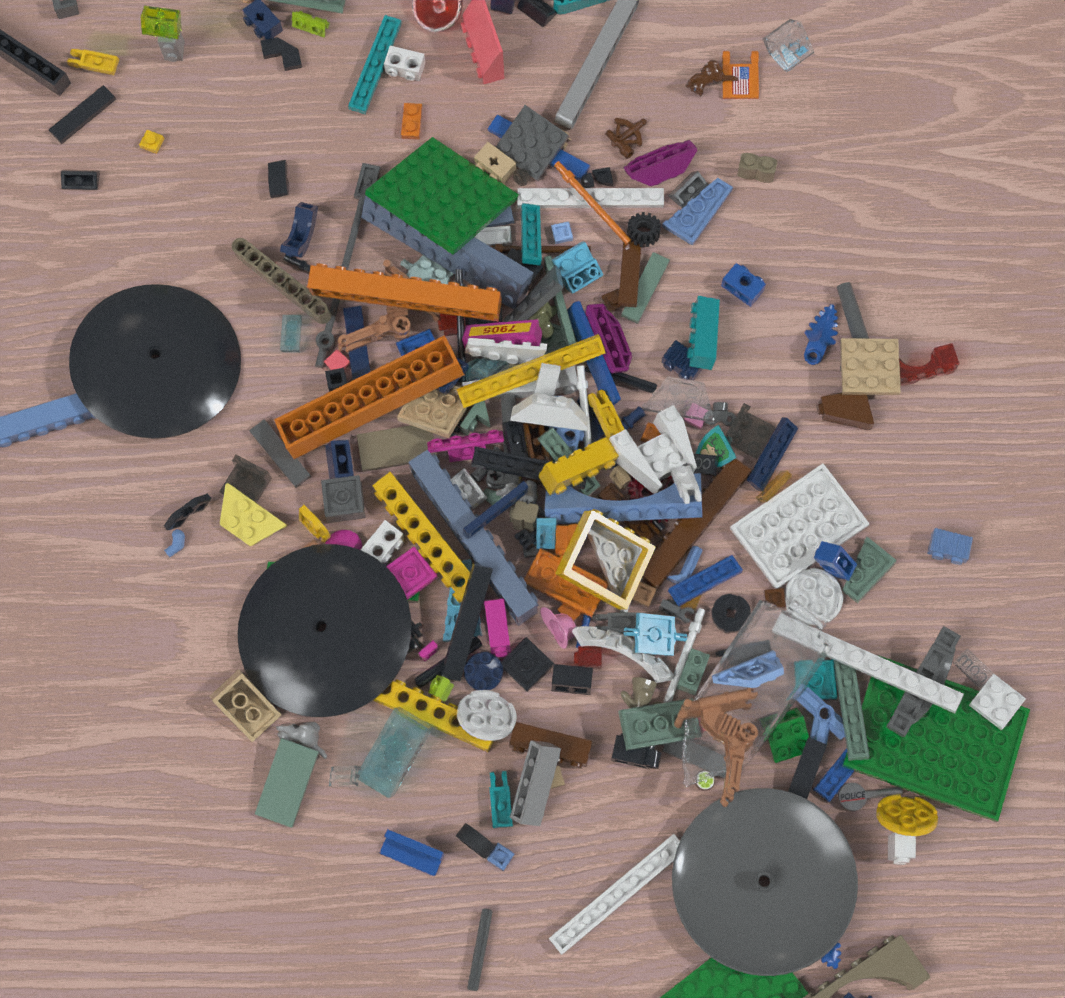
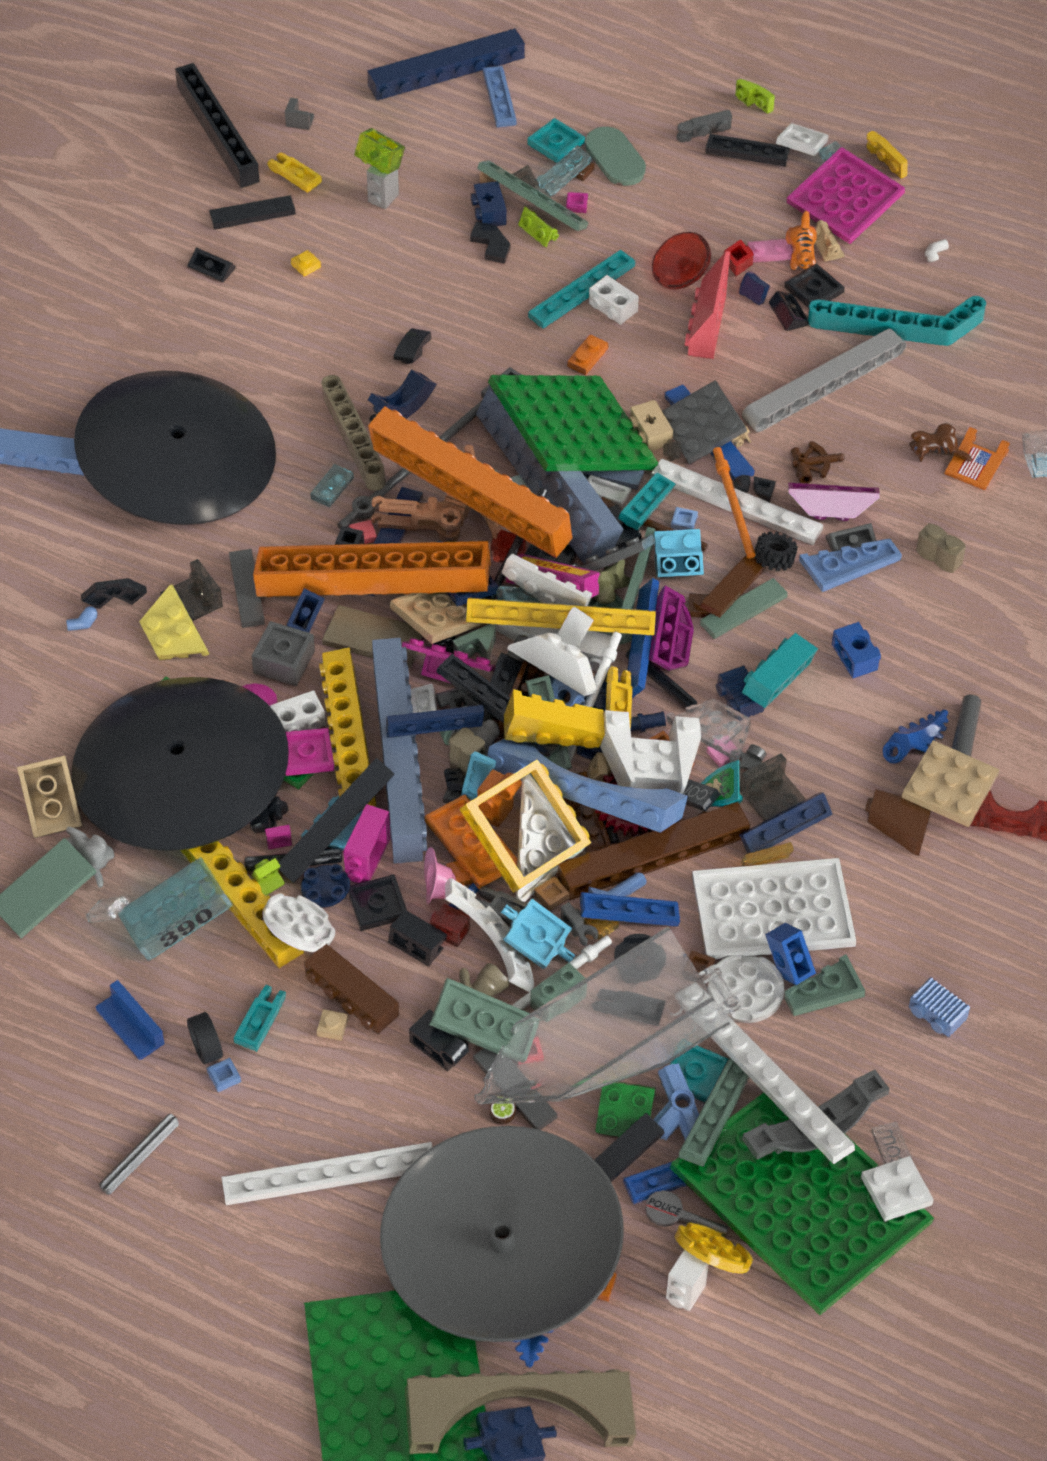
camera: 25 degrees right, 20 degrees down
(313, 524) = (235, 659): yellow tile -> none
(535, 783) = (307, 1010): light grey brick -> none
(686, 483) = (662, 790): white hinge -> none
(724, 730) = (551, 1046): nougat piece -> none
(752, 672) = (615, 1008): light blue wing -> none

